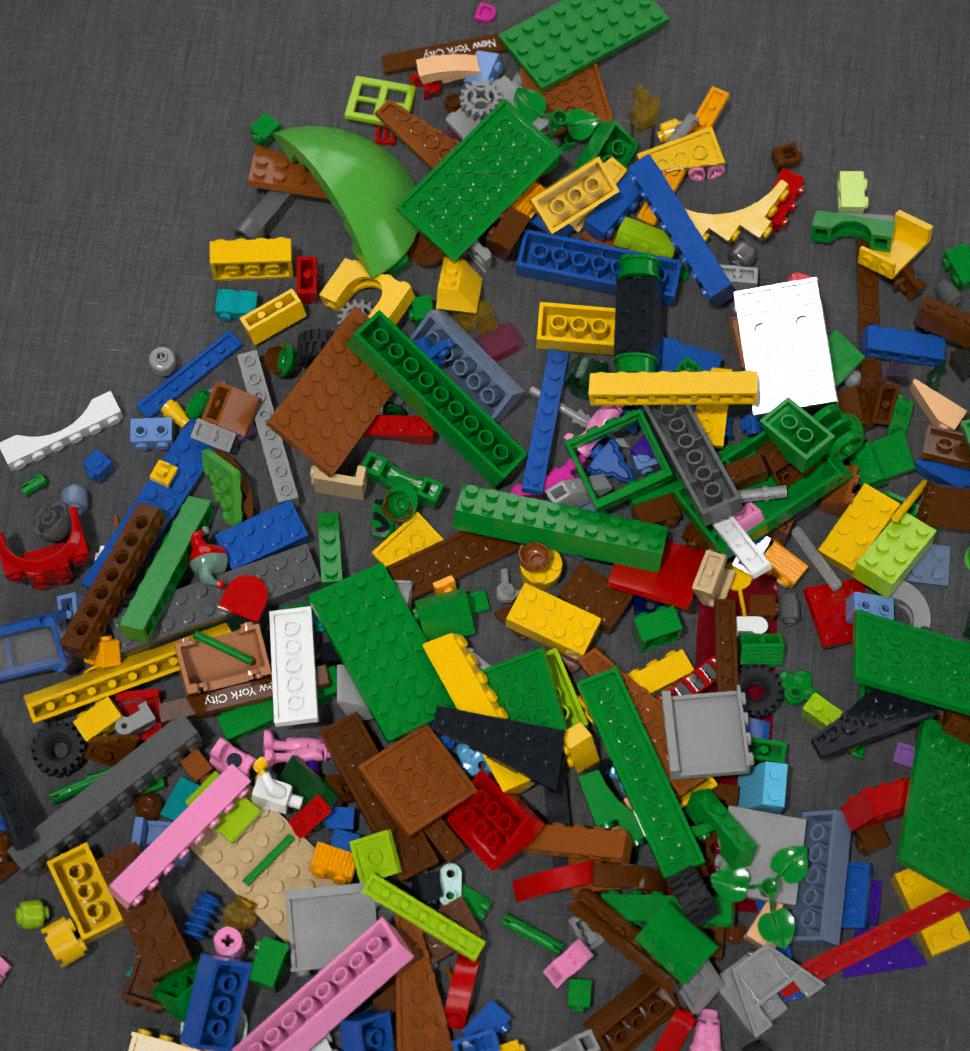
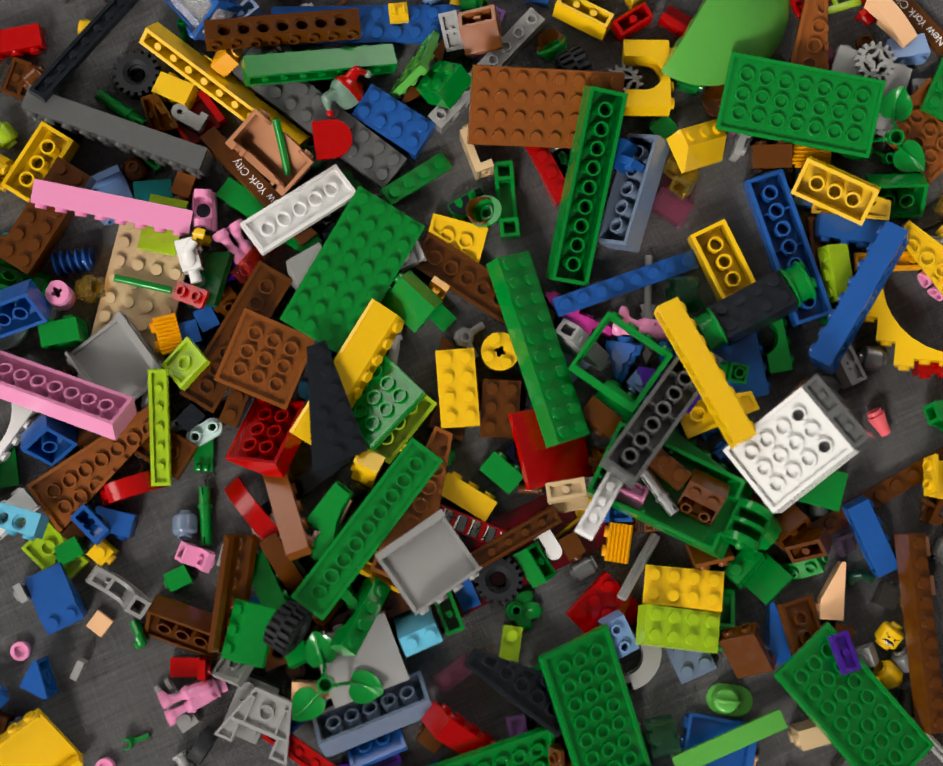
camera: 60 degrees right, 15 degrees up
(42, 679) = (182, 25): none -> green arm
(260, 468) = (444, 84): none -> green brick
(312, 744) = (247, 264): none -> clear red plate
(332, 244) = (674, 21): none -> red panel
(530, 958) = (184, 524): none -> sand blue head
(534, 557) = (498, 342): dark orange hair -> none
(686, 615) = (522, 489): none -> reddish brown pin
(692, 330) = (779, 357): none -> green arch
(797, 434) = (722, 496): green slope -> none
(822, 783) = (452, 673): none -> clear pink brick
(909, 501) = (732, 616): yellow bar -> none

